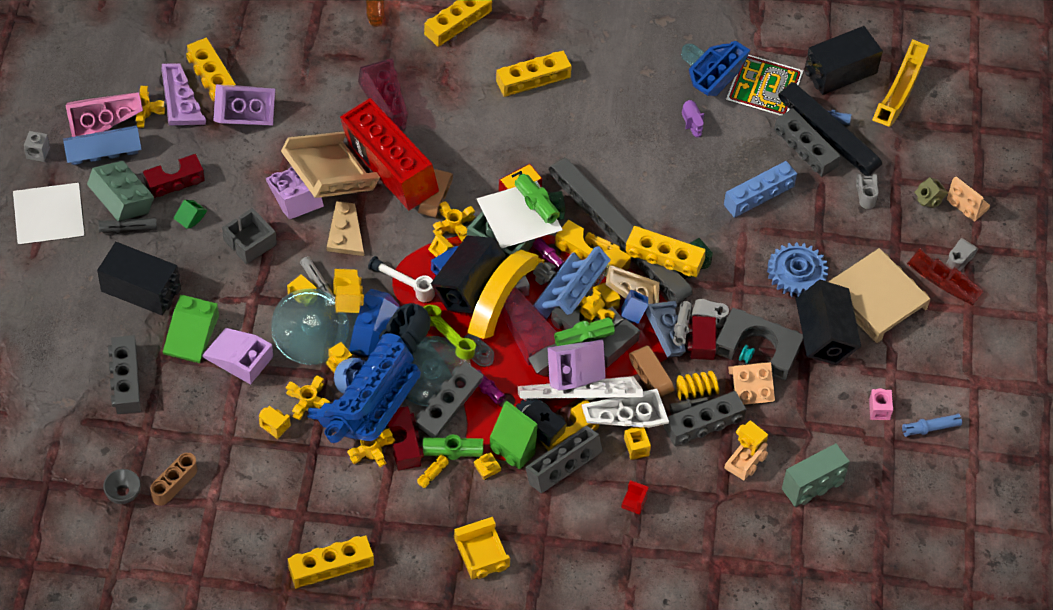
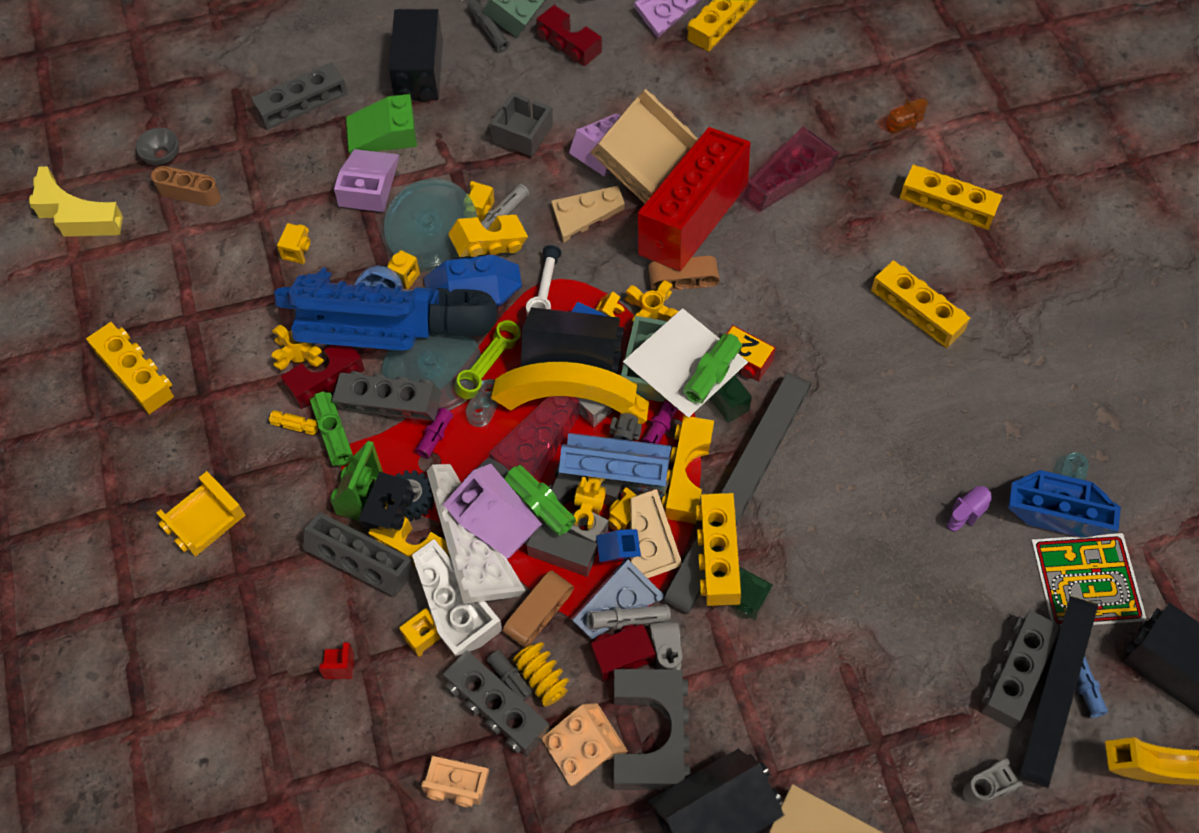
camera: 70 degrees right, 5 degrees up
(158, 565) = (70, 213): none -> light yellow arch
(190, 213) = (530, 67): green brick -> none
(244, 105) = (689, 49): lavender slope -> none
(302, 393) = (339, 260): yellow pin -> none
(487, 465) = (324, 476): yellow tile -> none
(598, 241) = (710, 474): yellow axle -> none
(746, 354) = (624, 719): teal bush -> none
(751, 436) = (480, 773): yellow brick -> none
(760, 189) = (903, 635): medium blue brick -> none
(783, 268) = (793, 756): medium blue gear -> none

